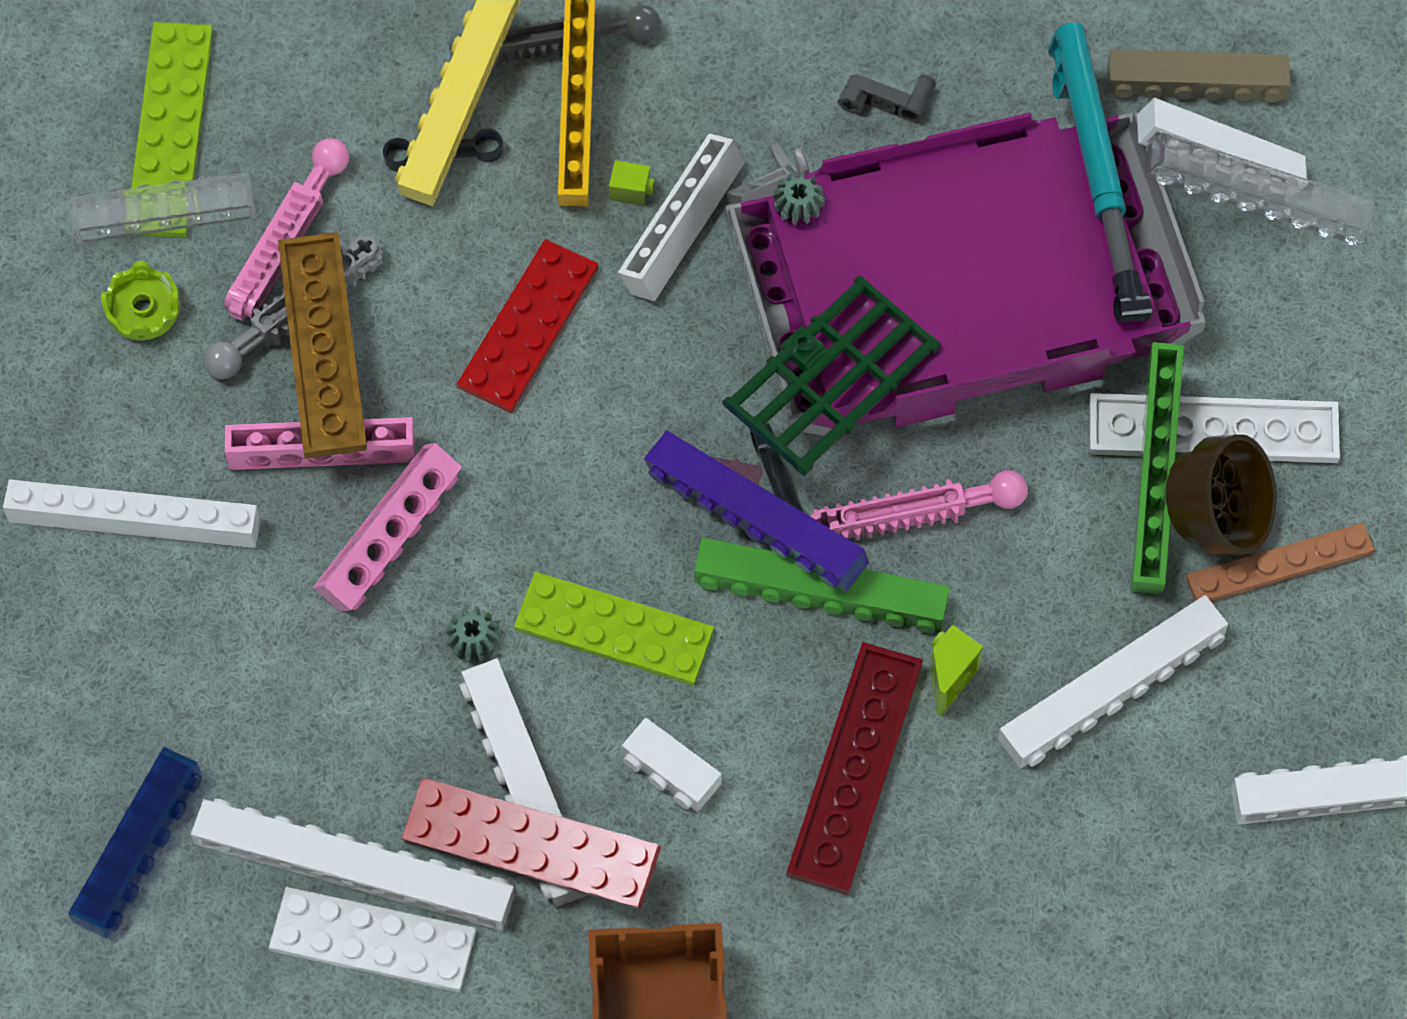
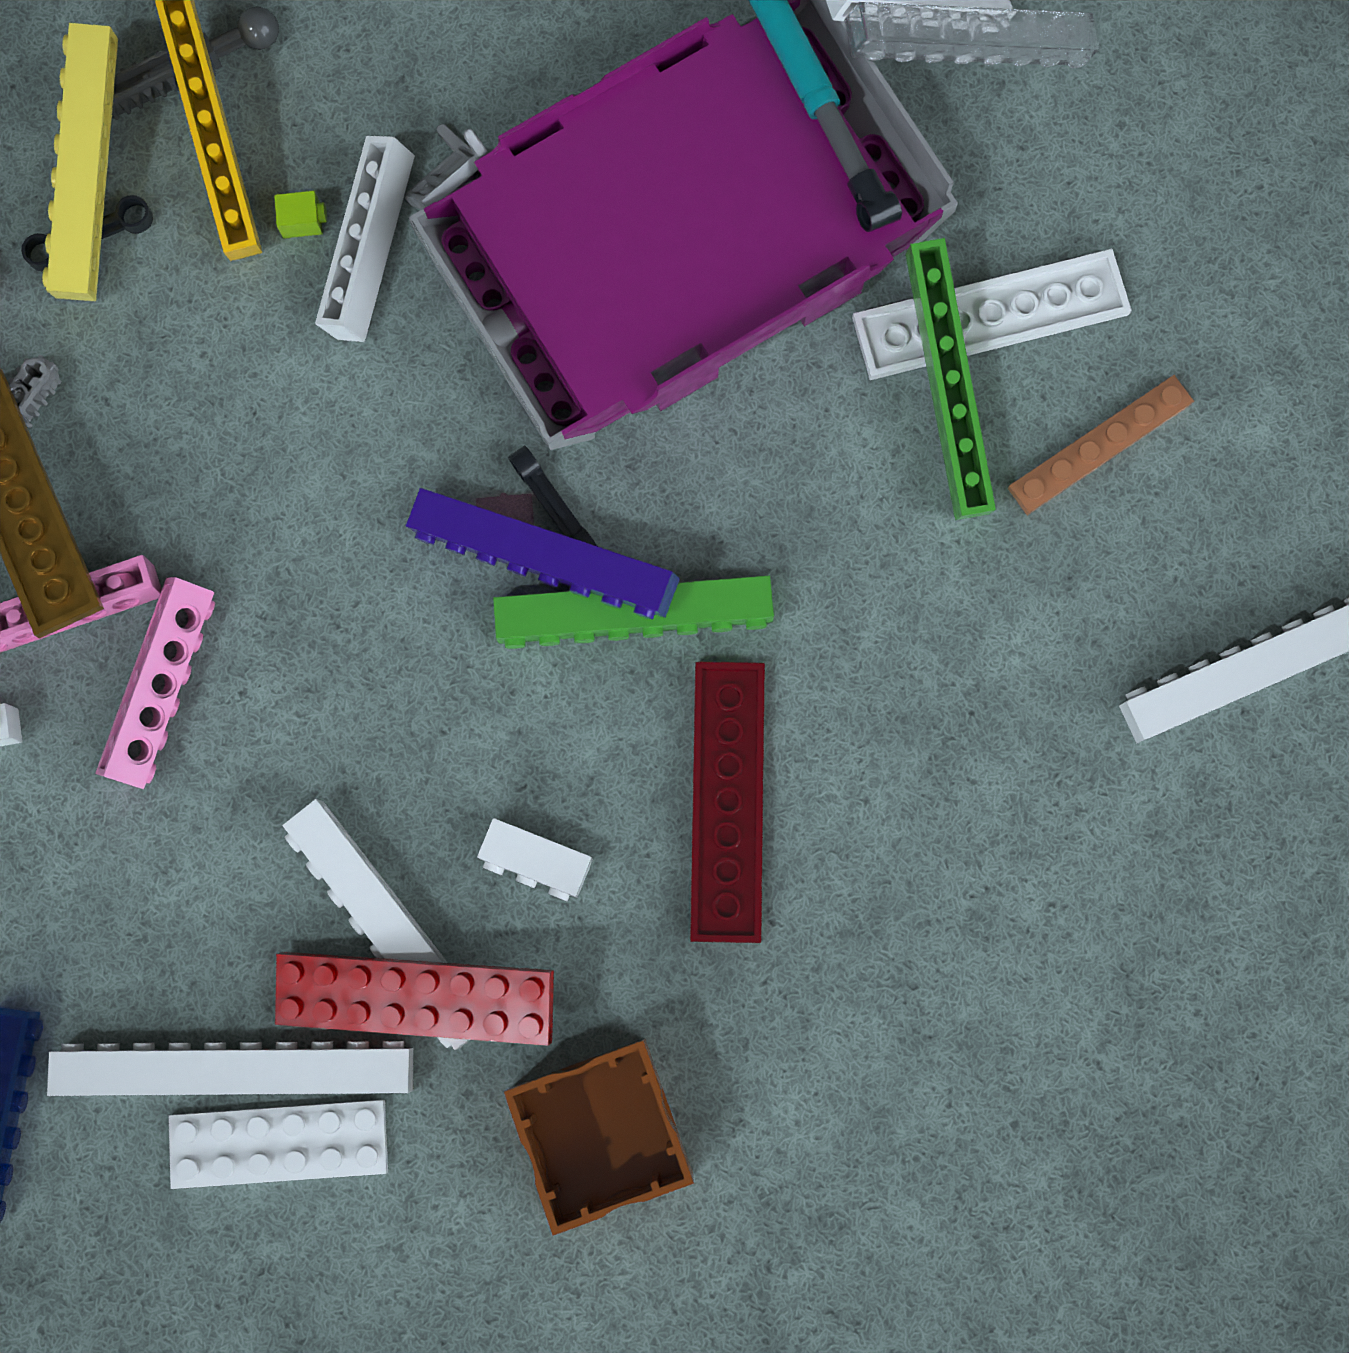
camera: 15 degrees left, 15 degrees up
(472, 645) = (270, 782): sand green gear -> none
(527, 326) = (237, 407): red plate -> none
(614, 628) = (429, 721): lime plate -> none
(789, 200) = (478, 177): sand green gear -> none
(814, 357) = (555, 369): dark green door -> none
(907, 106) = (516, 39): dark grey beam -> none
(953, 665) = (796, 664): lime slope -> none
(1006, 490) = (796, 448): bright pink gear -> none
(1112, 682) = (968, 627): white brick -> none
(1223, 495) = (1029, 393): dark brown wheel -> none

